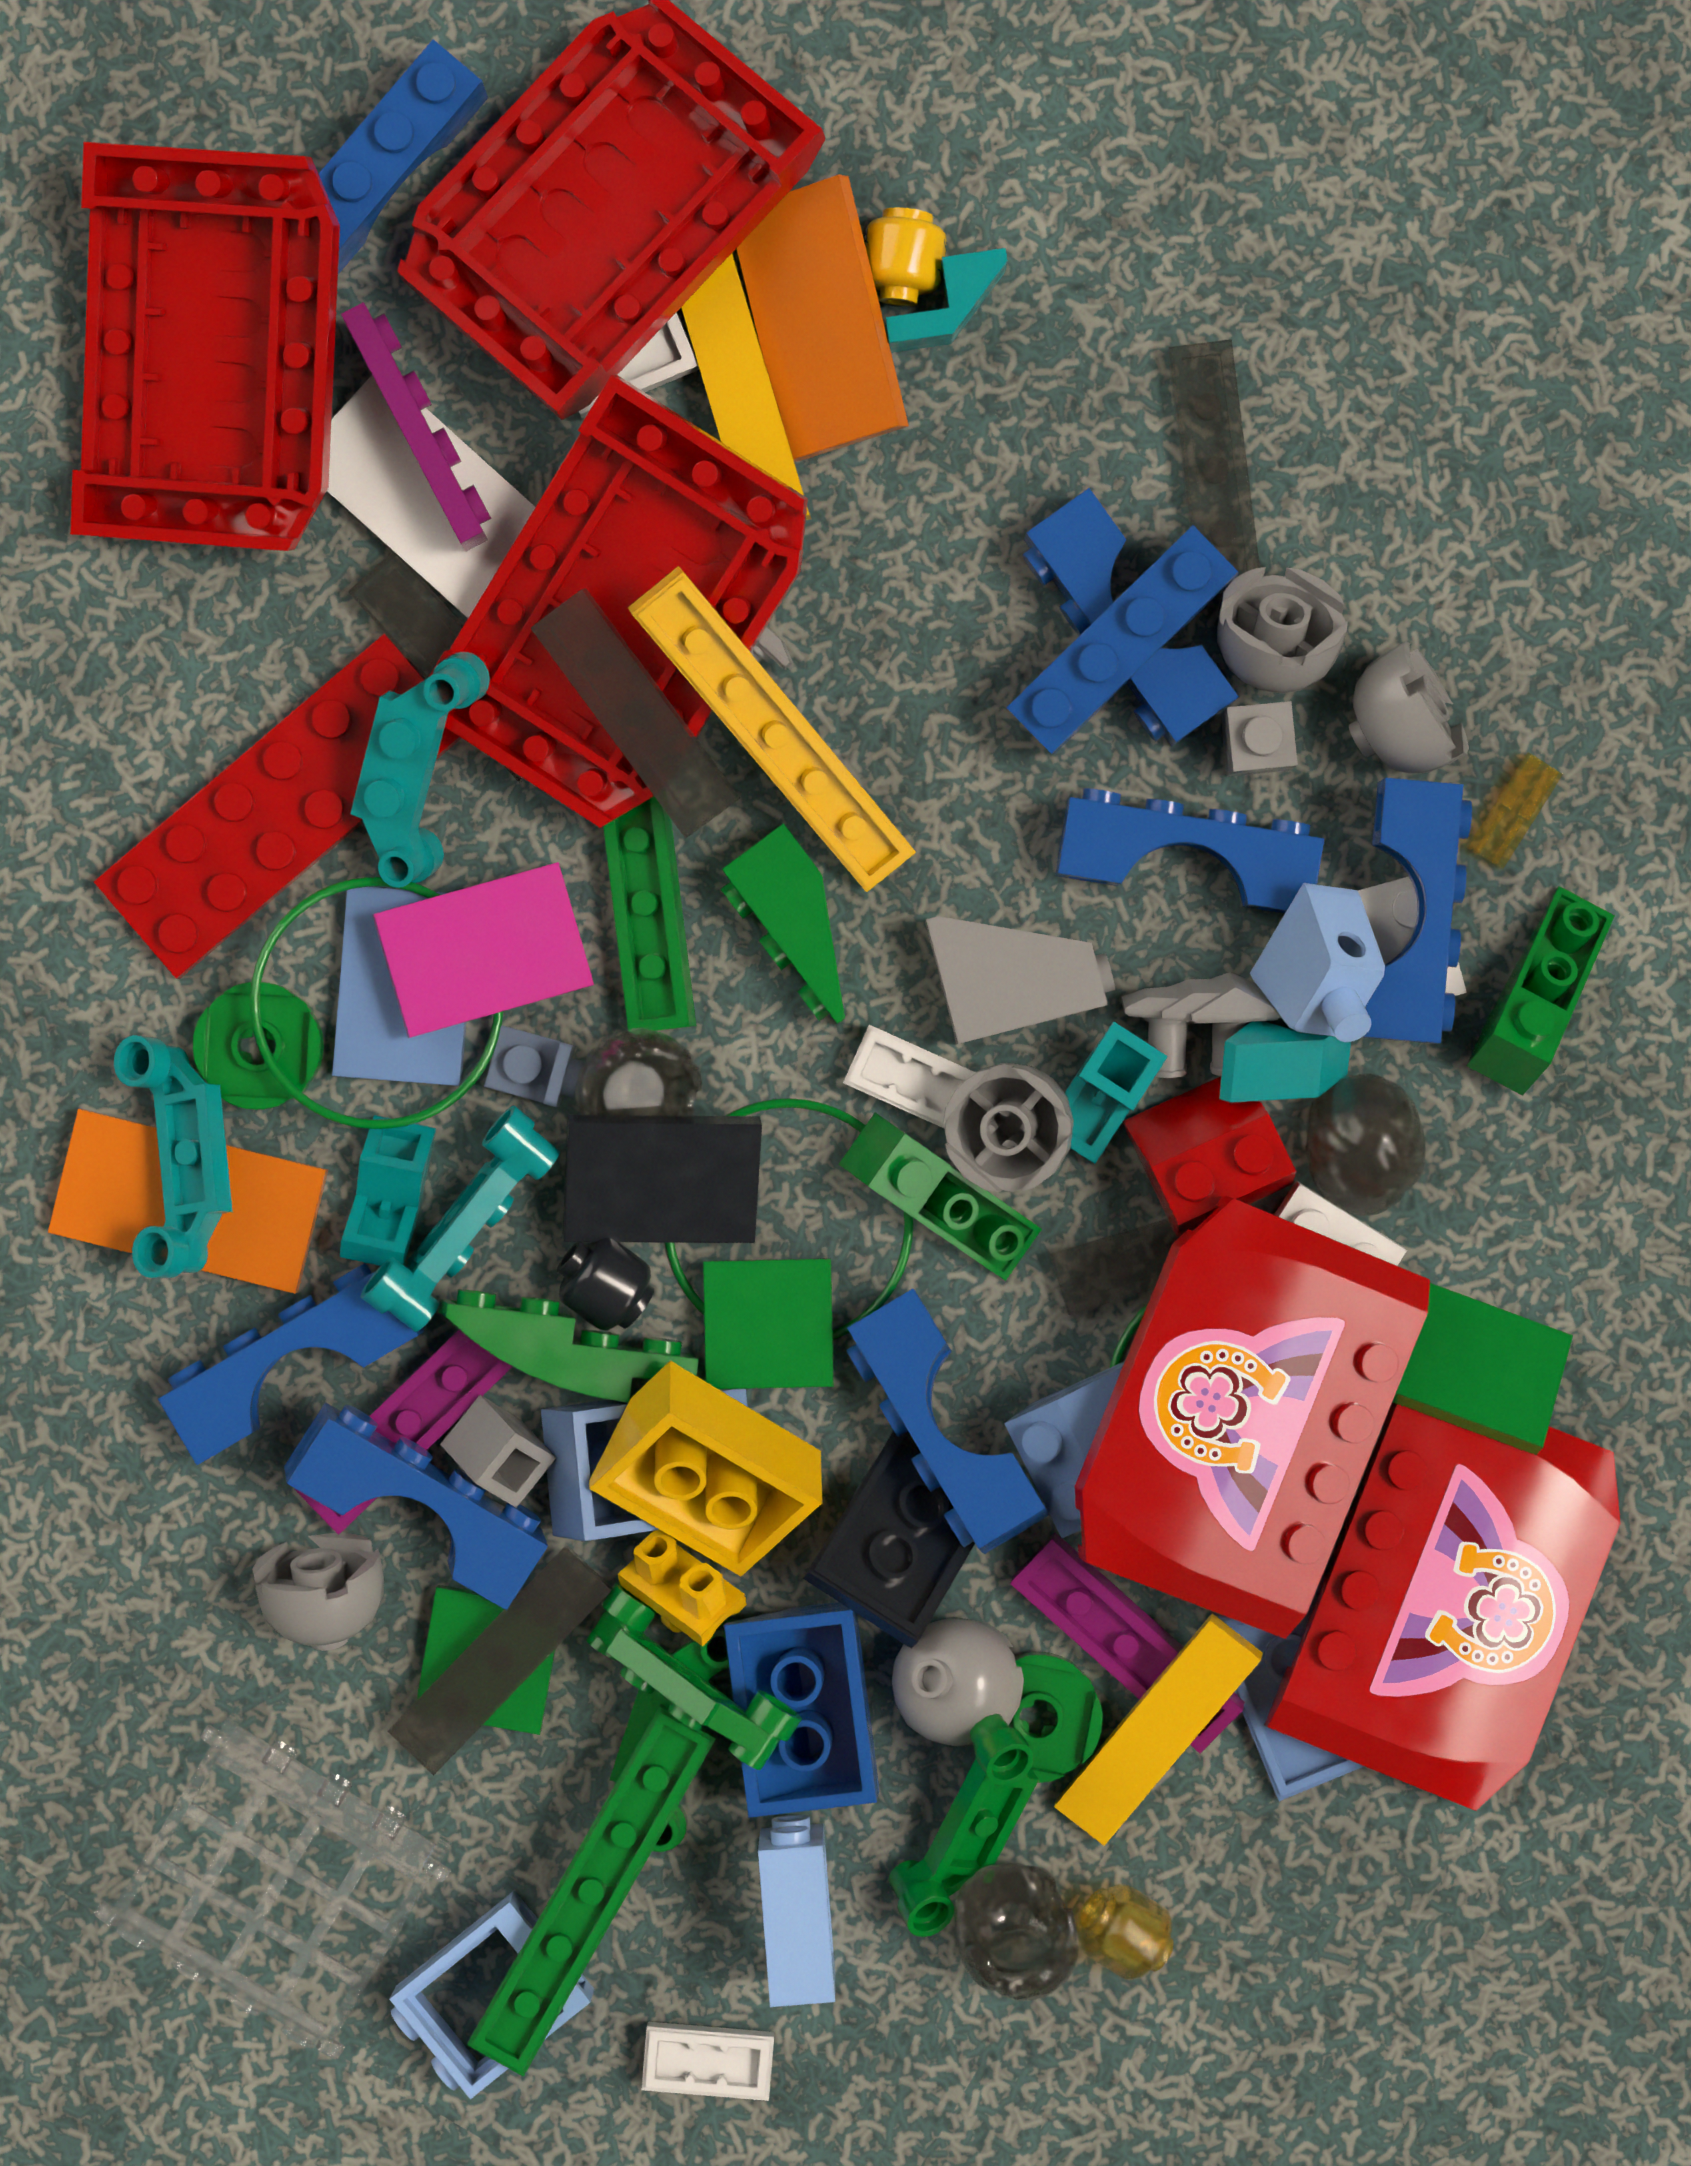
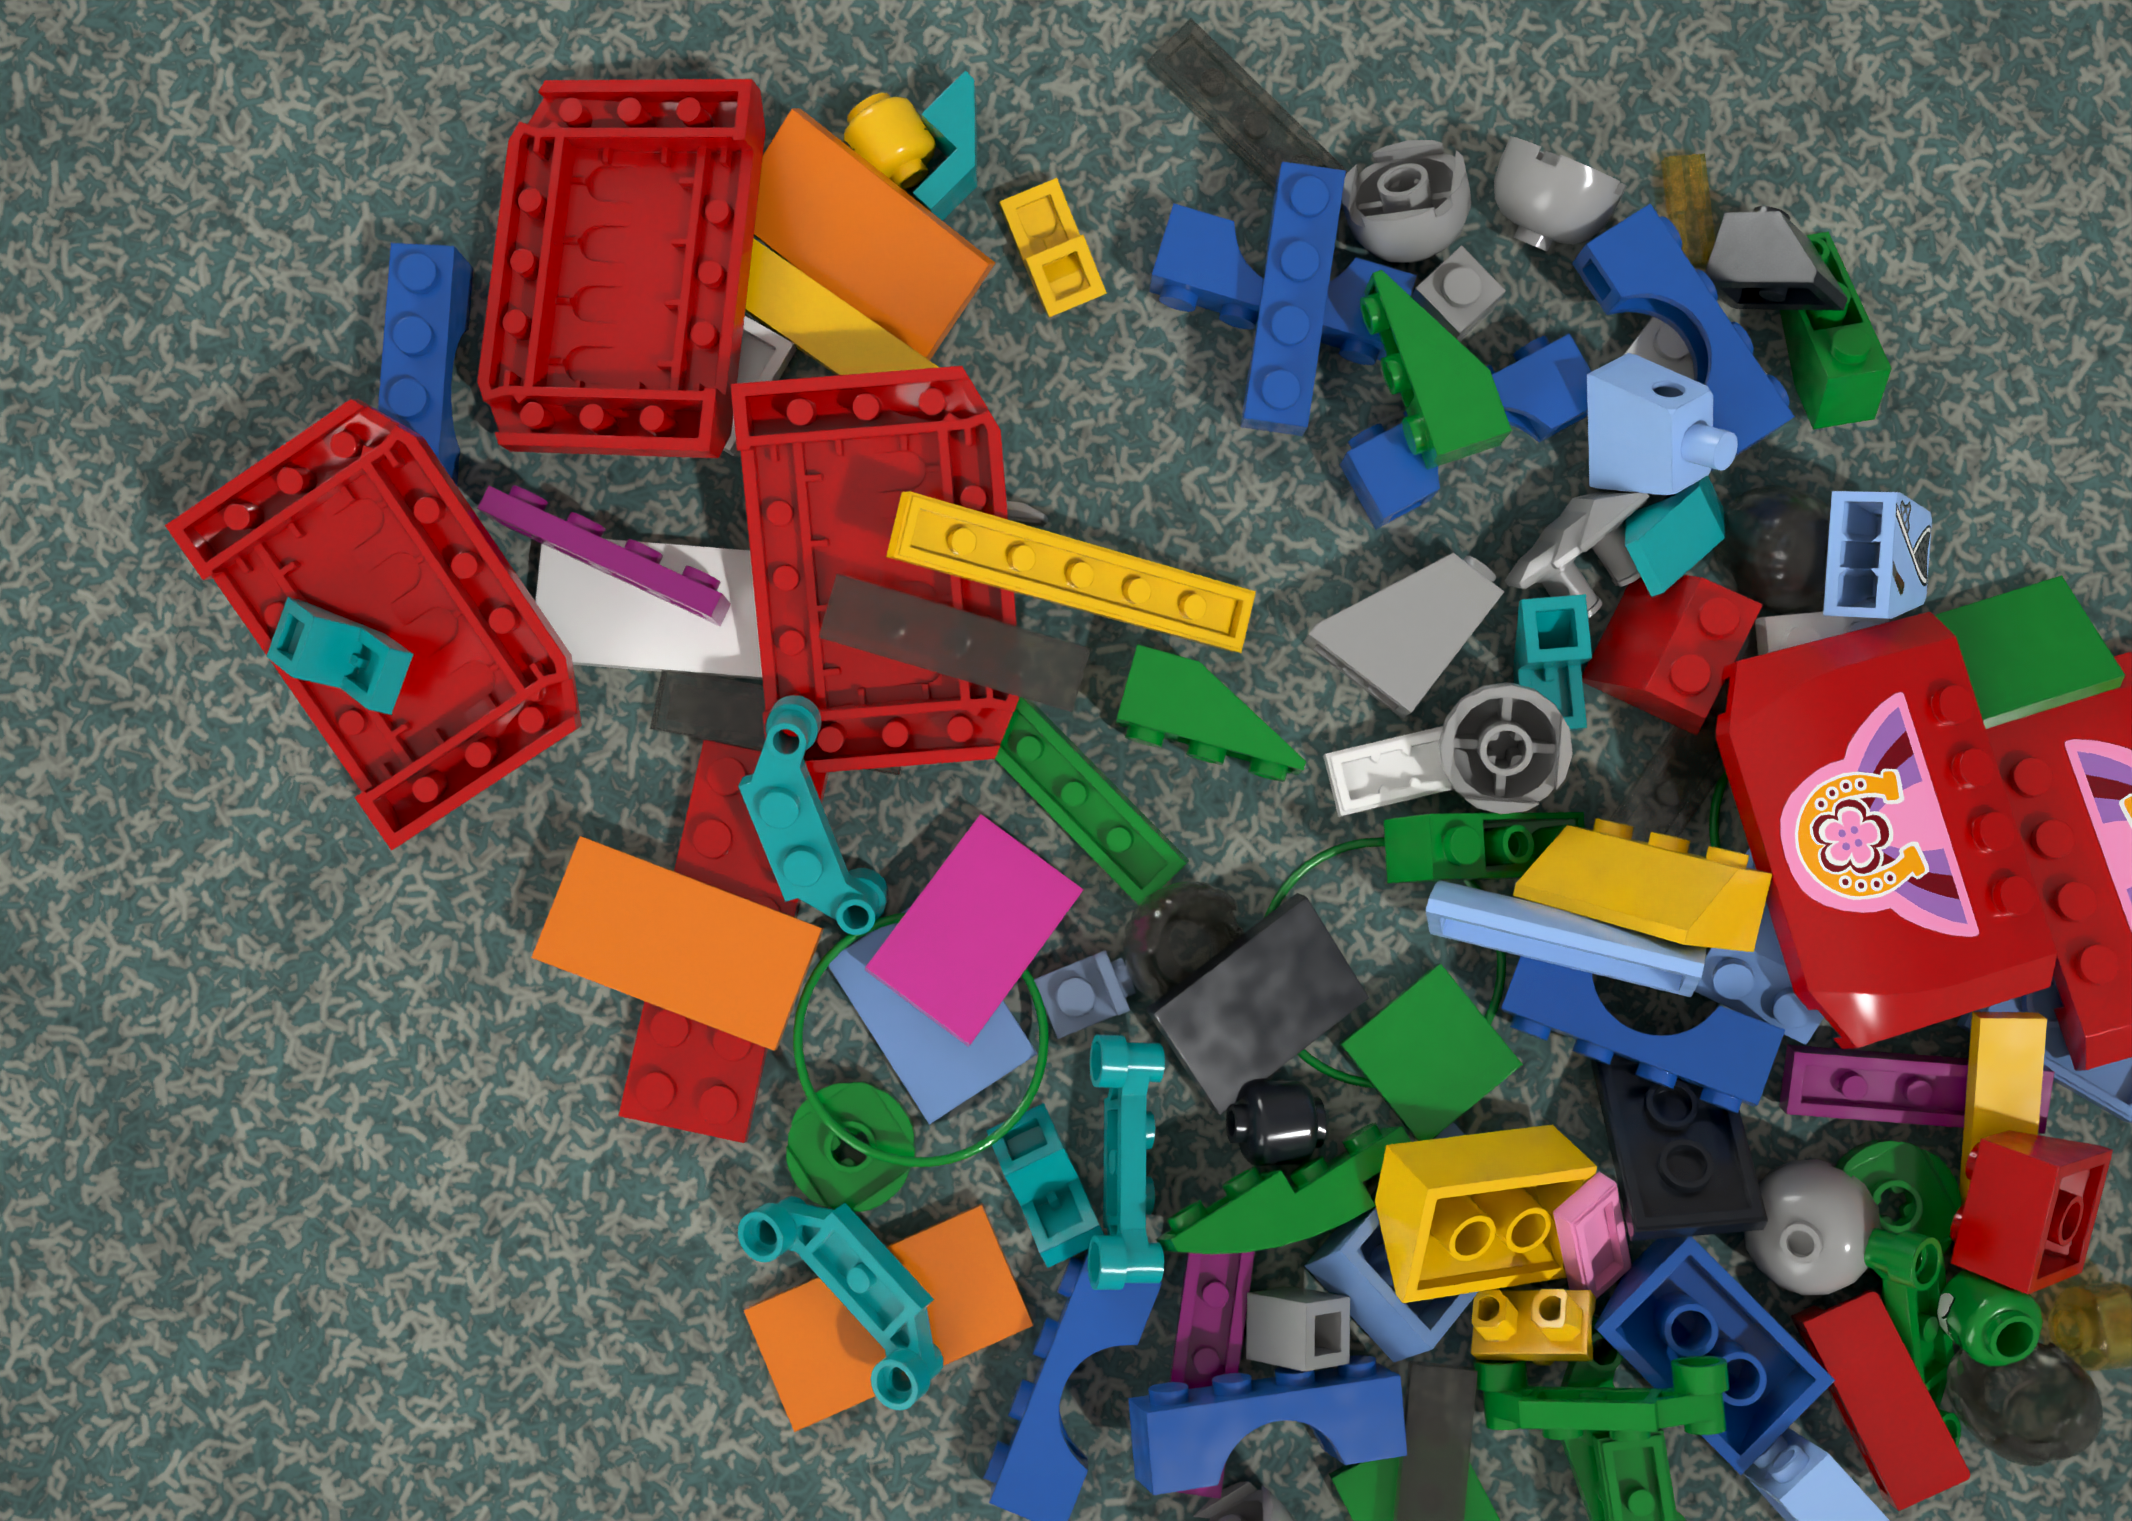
camera: 40 degrees left, 5 degrees down
(146, 347) = (339, 654): none -> teal slope
(241, 781) = (677, 943): none -> orange tile
(779, 1557) = (1593, 1236): none -> bright pink tile
(906, 1848) = (1883, 1400): none -> red panel
(932, 1306) = (1562, 938): none -> light blue slope
(970, 444) = (1052, 248): none -> yellow slope
(1028, 1319) = (1650, 885): none -> yellow slope
(1037, 1849) = (1989, 1319): none -> green head
(1134, 1795) = (2029, 1208): none -> red slope
(1182, 804) = (1442, 384): none -> green slope
(1420, 1205) = (1876, 555): none -> light blue torso
(1533, 905) = (1770, 265): none -> slope

